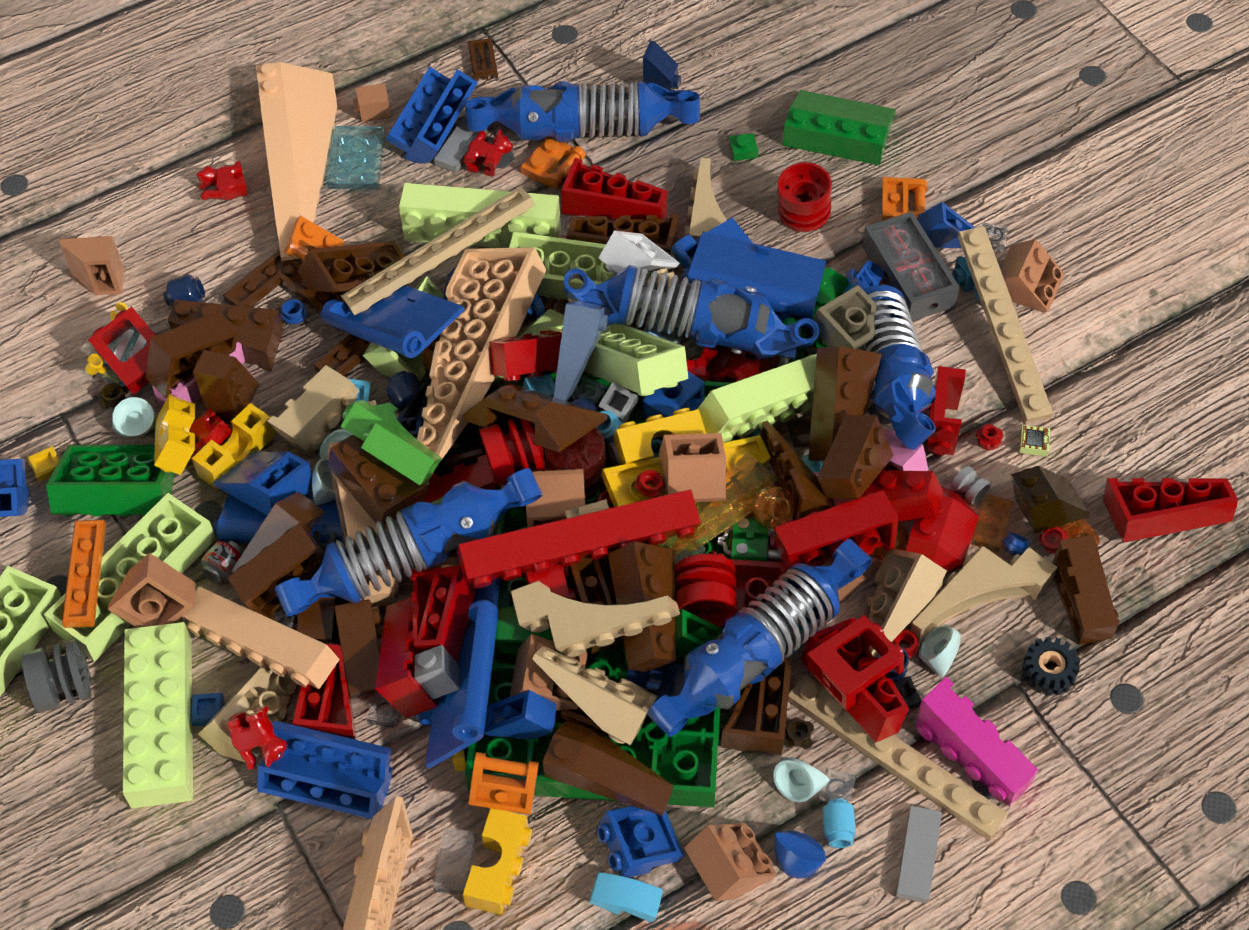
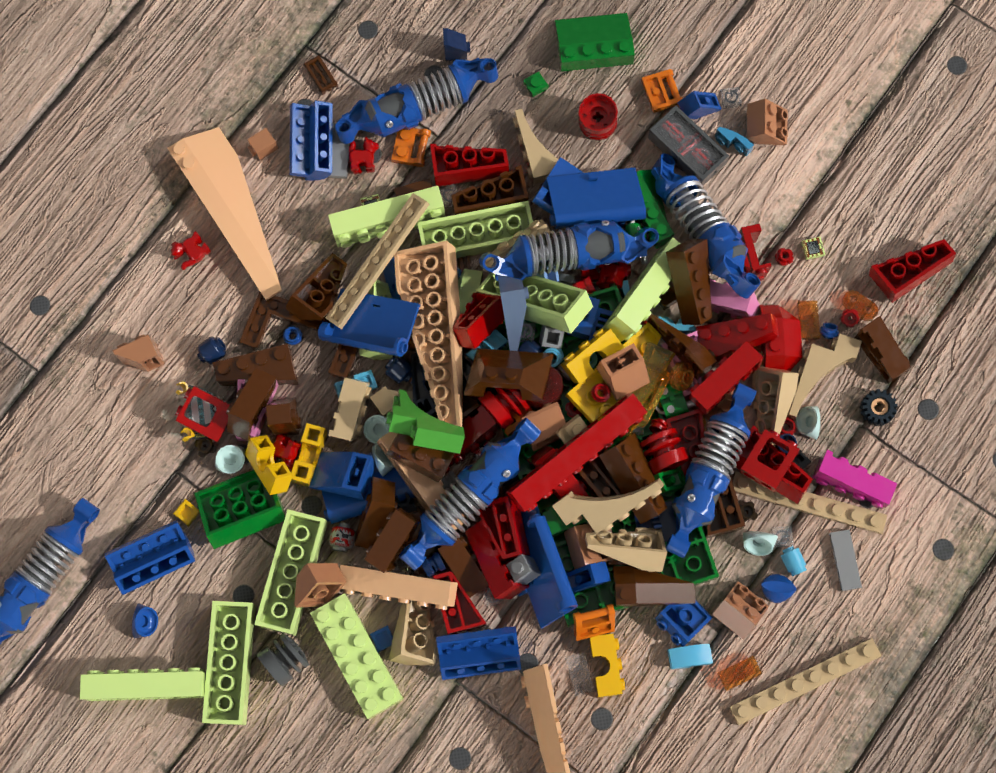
camera: 20 degrees left, 20 degrees up
(84, 574) = (265, 587): orange tile -> none
(255, 731) = (430, 652): red animal -> none
(310, 236) = (281, 276): orange plate -> none
(320, 625) = (433, 564): none -> dark blue wheel
(356, 157) = (273, 194): clear light blue plate -> none
(635, 250) = (516, 219): white slope -> none
(847, 319) = (673, 217): dark tan slope -> none
(855, 457) = (719, 324): reddish brown wedge -> none
(969, 484) = (786, 299): light grey wheel -> none
(1005, 325) = (765, 170): tan plate -> none
(1047, 499) = (839, 293): dark brown slope -> none

